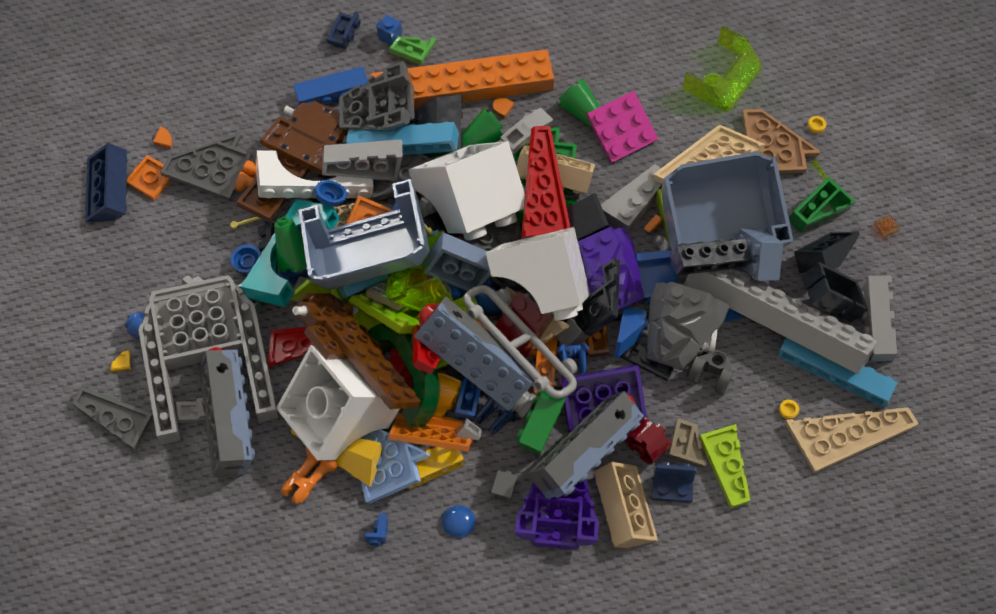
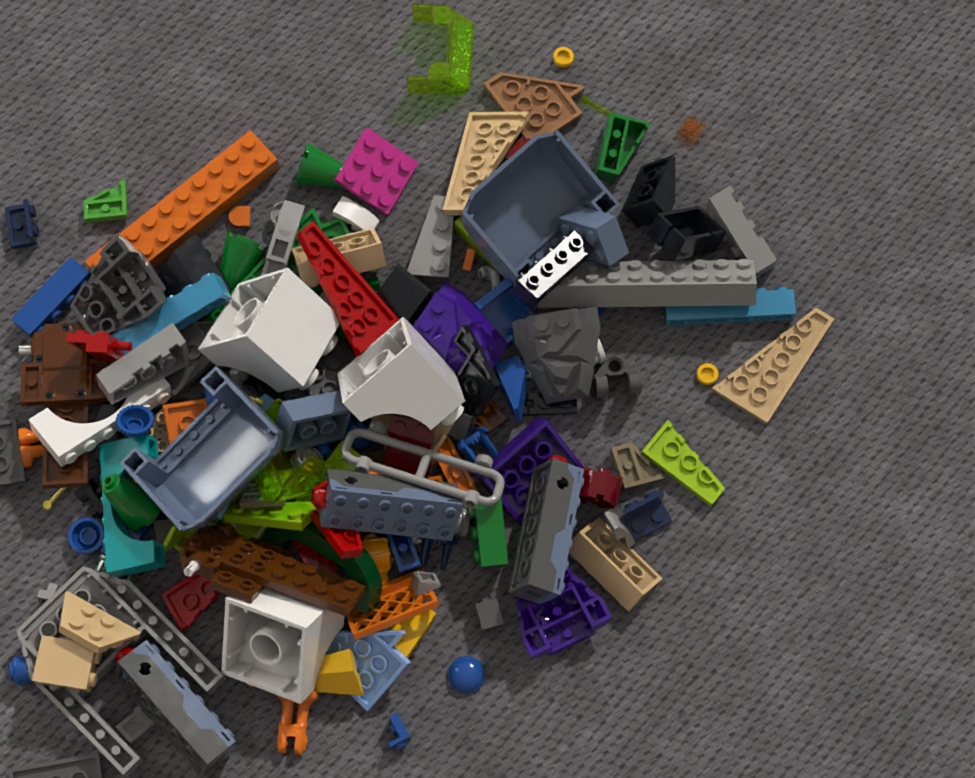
camera: 30 degrees left, 10 degrees up
(122, 362) = (31, 717): yellow tile -> none
(169, 333) = (65, 664): none -> tan brick
(206, 317) = (93, 626): none -> tan wing
(339, 126) = (99, 344): none -> red plate
(389, 29) = (70, 198): blue brick -> none
(587, 148) = (355, 215): none -> white slope
(645, 479) = (619, 529): none -> light grey slope

